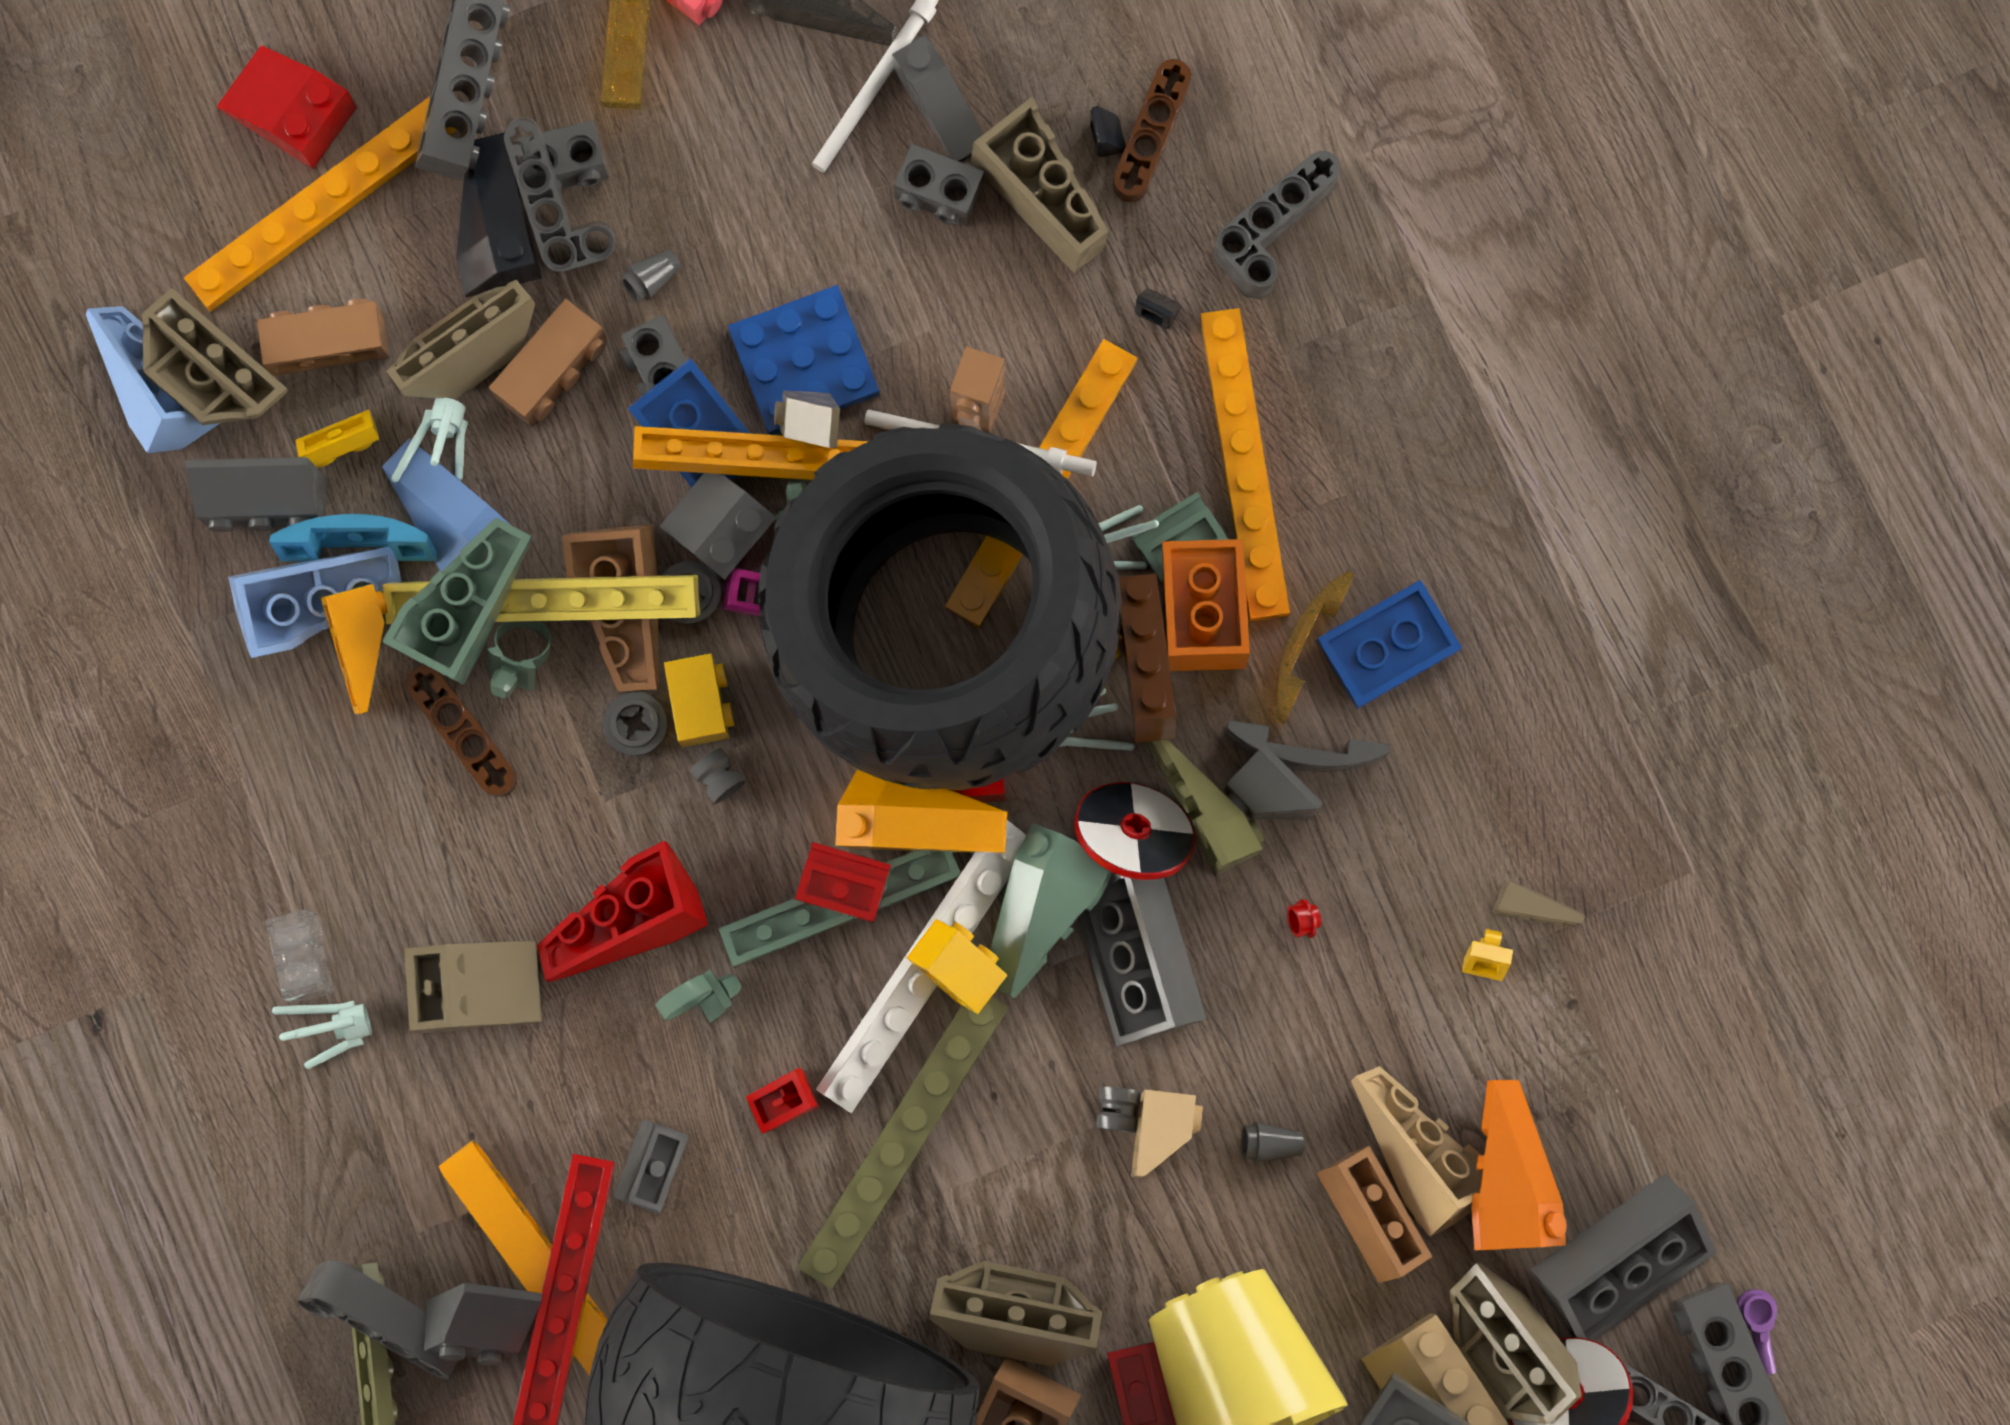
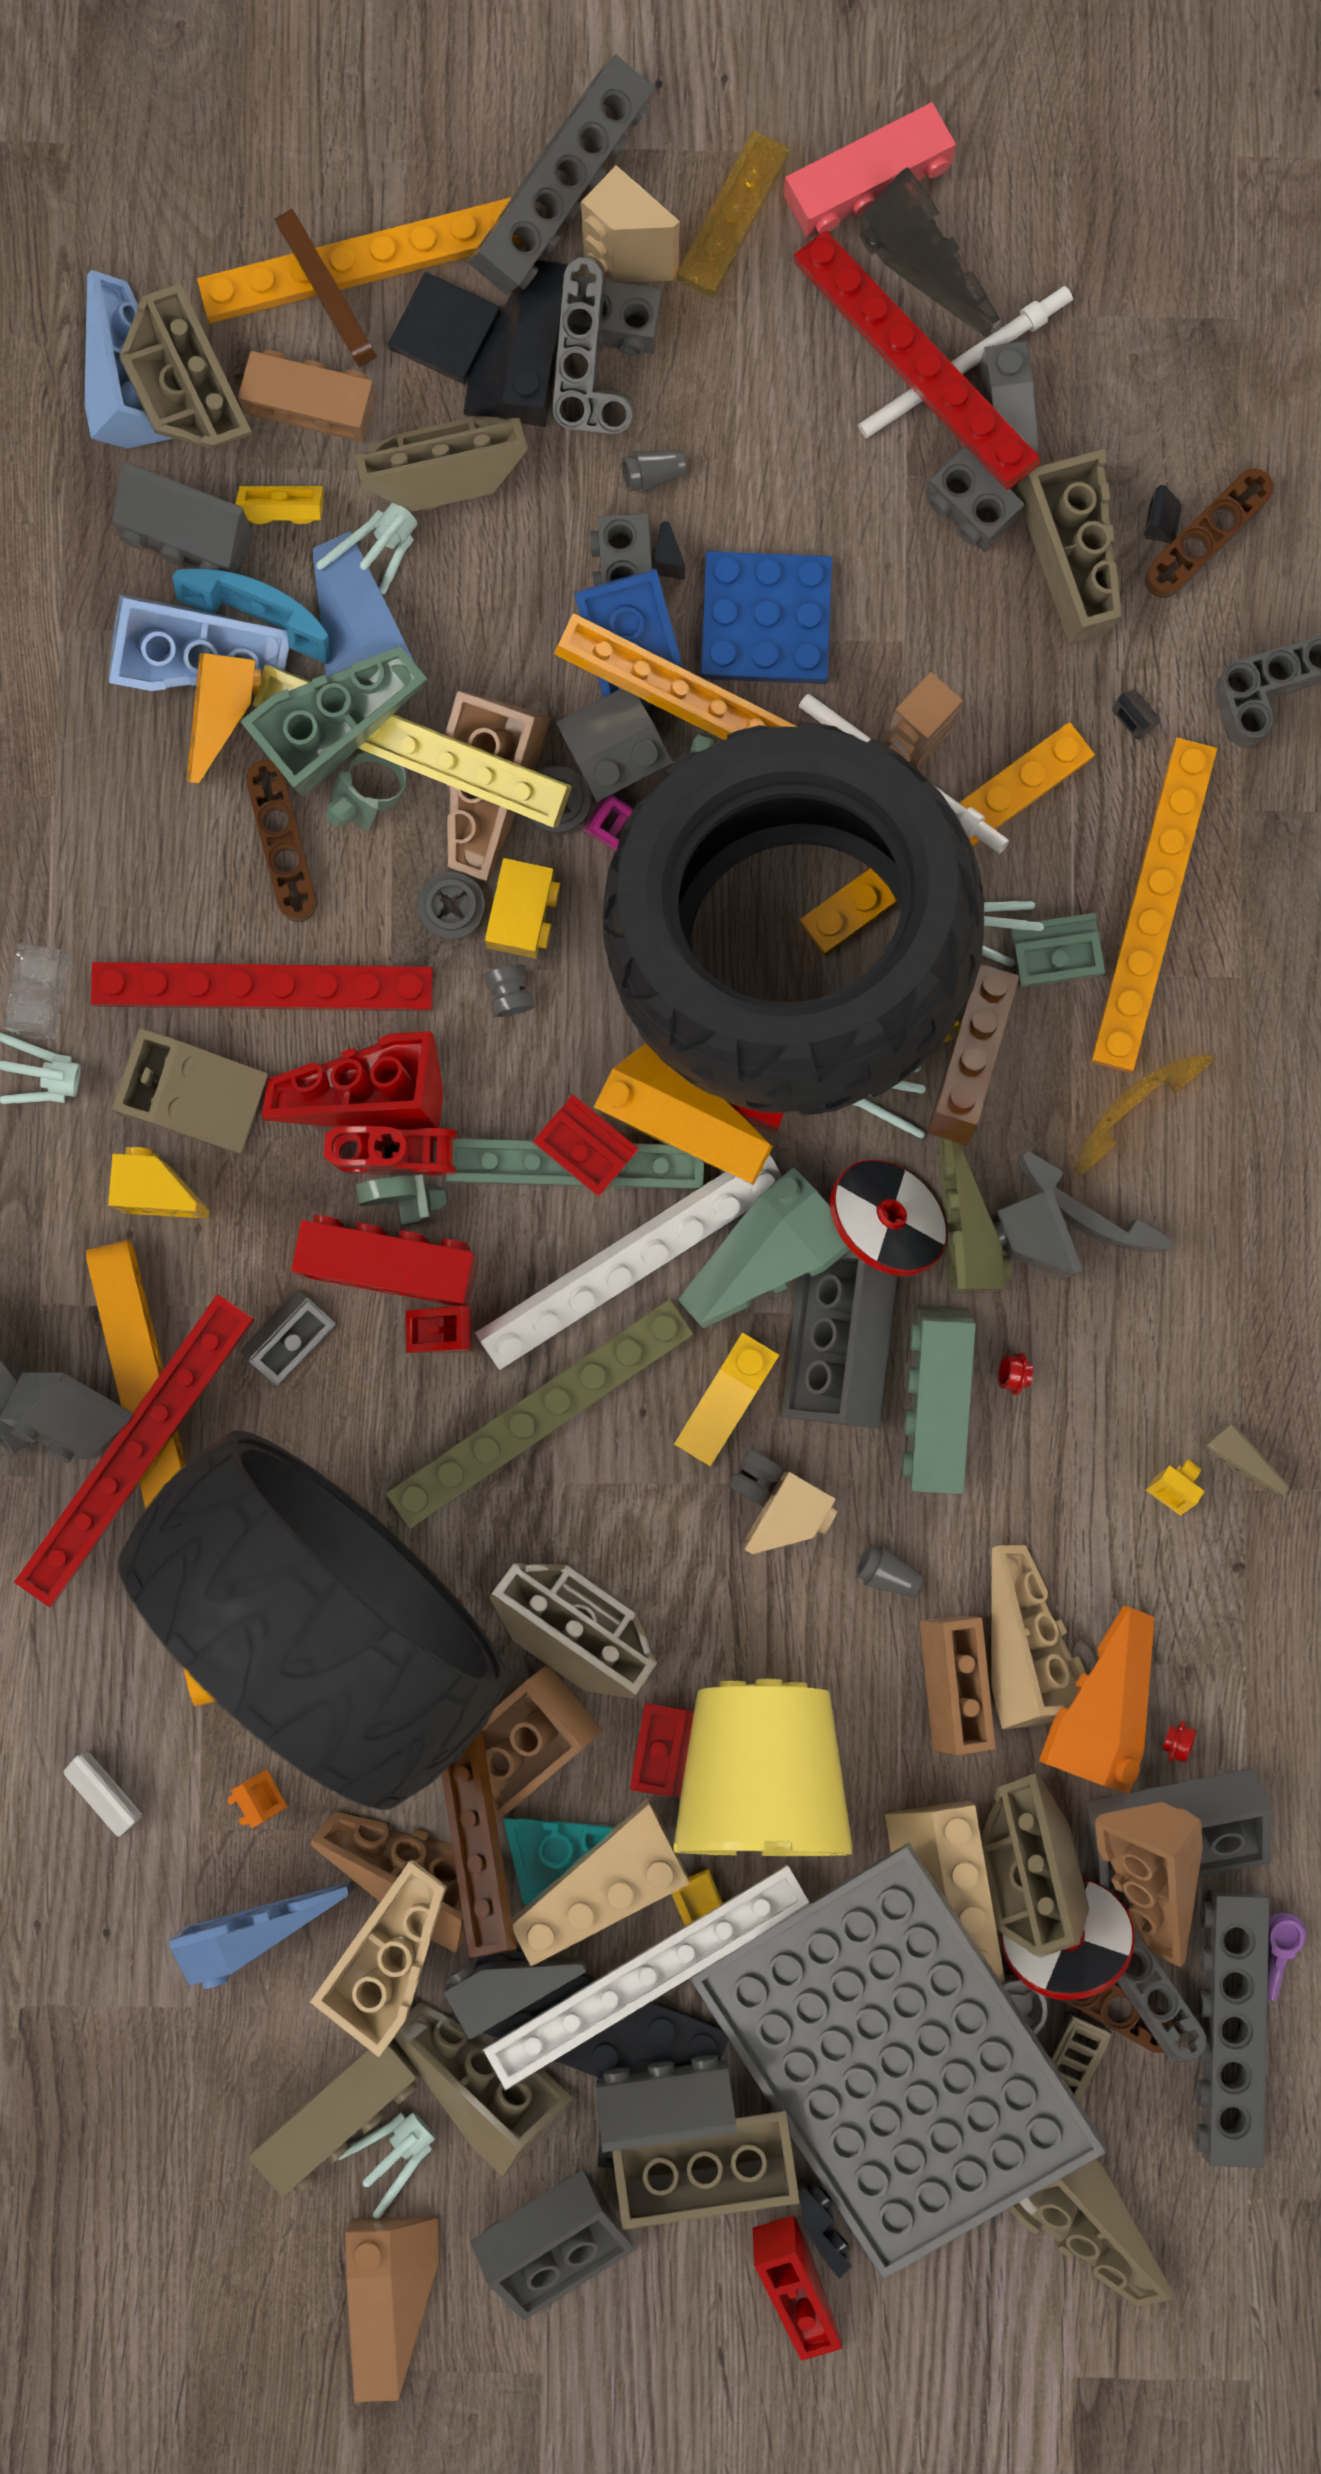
camera: 20 degrees right, 5 degrees up
(288, 105) = (370, 148): red slope -> none
(300, 239) = (325, 287): none -> reddish brown beam
(417, 230) = (444, 327): none -> black tile
(473, 1085) = (150, 1187): none -> yellow slope
(497, 866) = (261, 986): none -> red plate
(545, 83) = (629, 231): none -> tan slope
(549, 363) = (517, 515): medium nougat brick -> none
(695, 342) = (667, 554): none -> black slope
(695, 956) = (414, 1153): none -> red piece
(709, 1062) = (385, 1263): none -> red brick
(808, 417) = (746, 676): slope -> none
(839, 89) = (917, 360): none -> red plate
(957, 965) = (661, 1273): yellow brick -> none
(1062, 1051) = (726, 1399): none -> yellow slope
(1205, 605) = (1054, 1027): orange slope -> none
(1248, 969) = (940, 1399): none -> sand green wedge
(1388, 644) = (1216, 1142): blue plate -> none
(1590, 1180) = (1180, 1742): none -> red plate
(1618, 1297) = (1157, 1867): none -> medium nougat wedge

